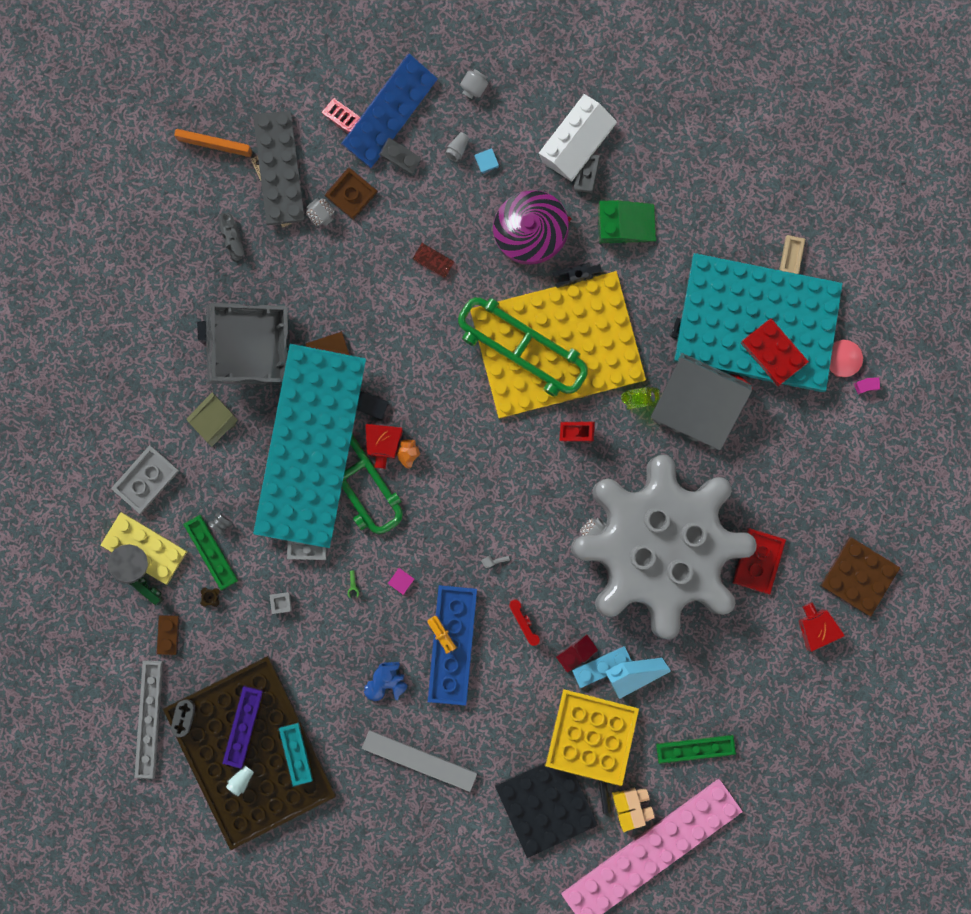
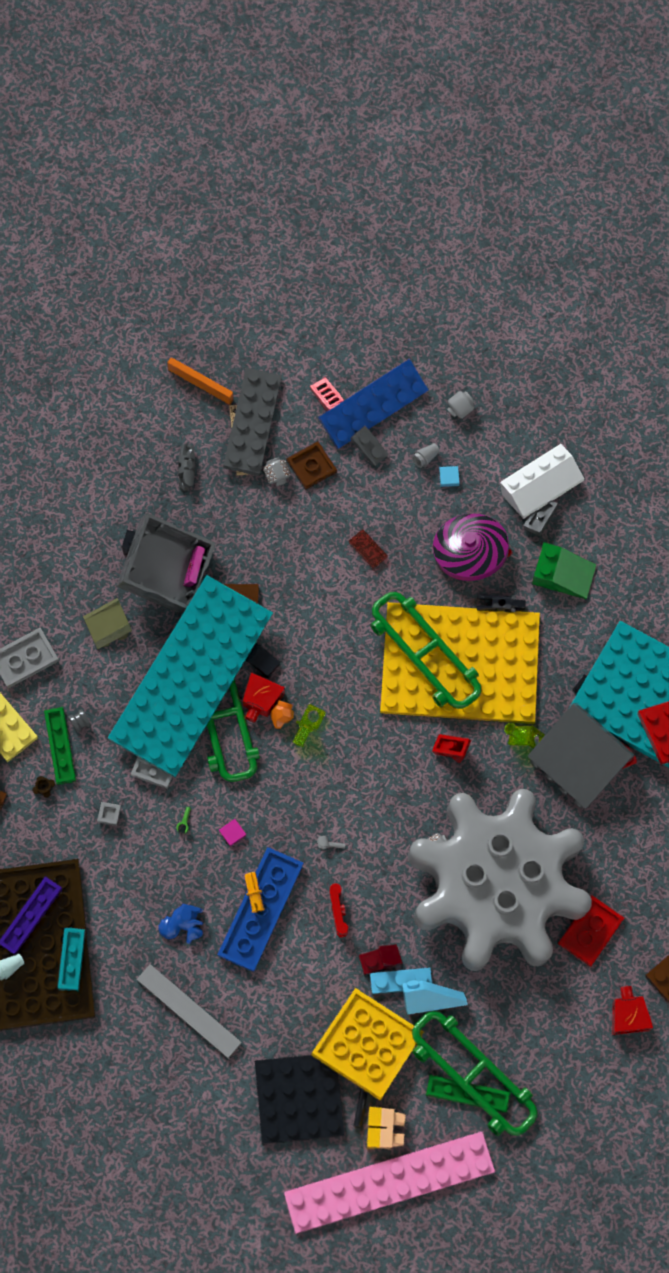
camera: 20 degrees right, 15 degrees down
(274, 336) = (194, 566): none -> dark pink tile
(435, 456) = (307, 726): none -> clear neon green bracket
(646, 727) = (497, 1123): none -> green bar

